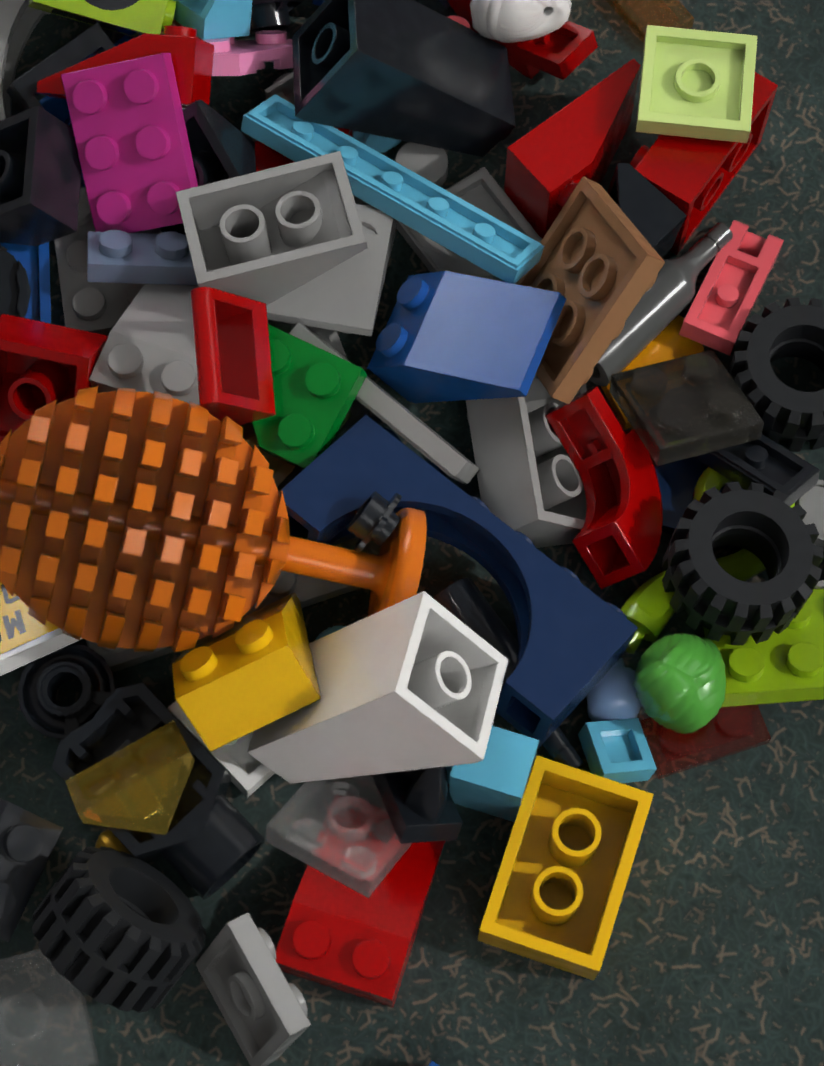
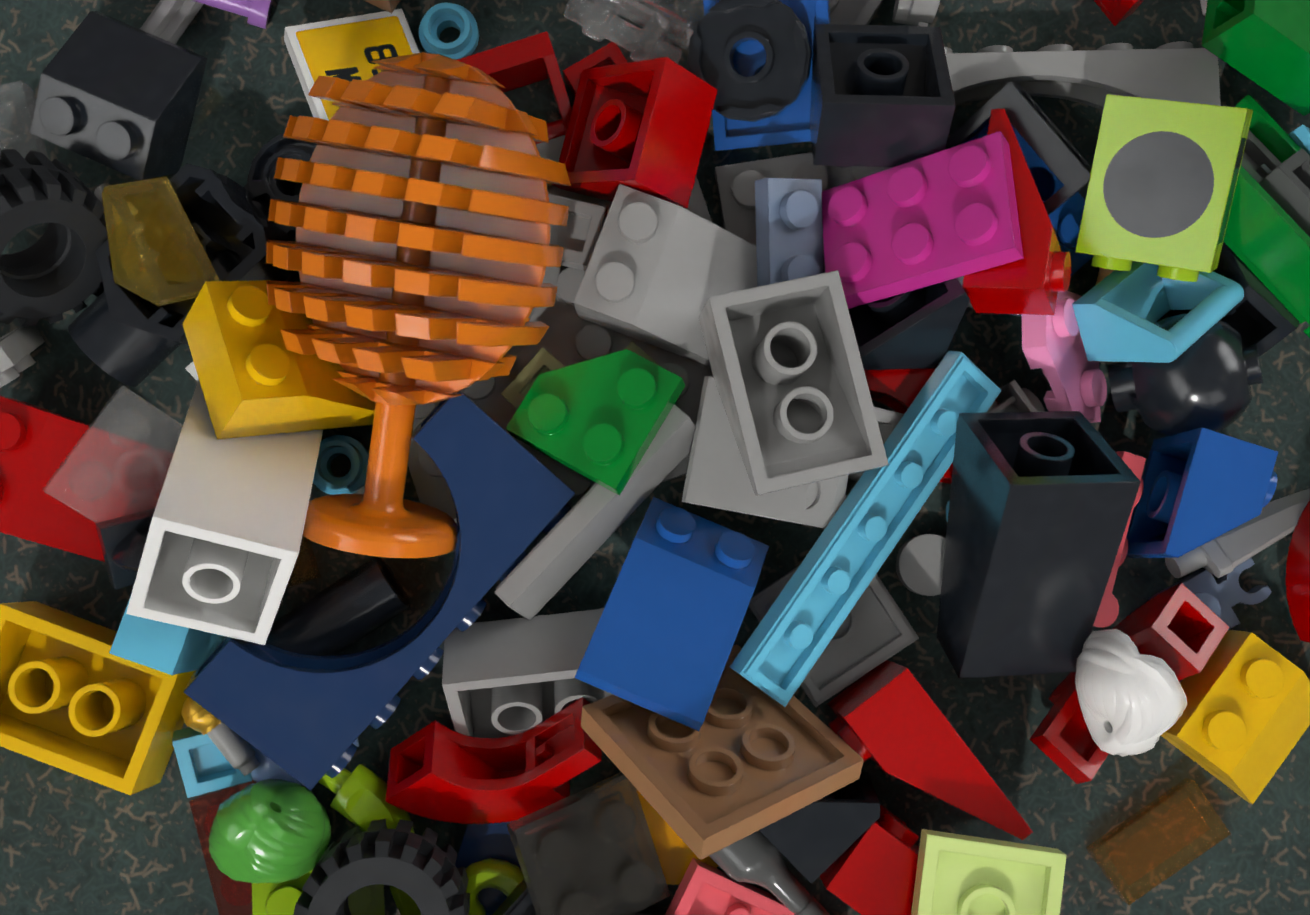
camera: 90 degrees right, 15 degrees up
(232, 355) = (619, 349): red tile -> none
(374, 520) = (423, 500): black plate -> none
(575, 739) = (231, 745): none -> light grey piece

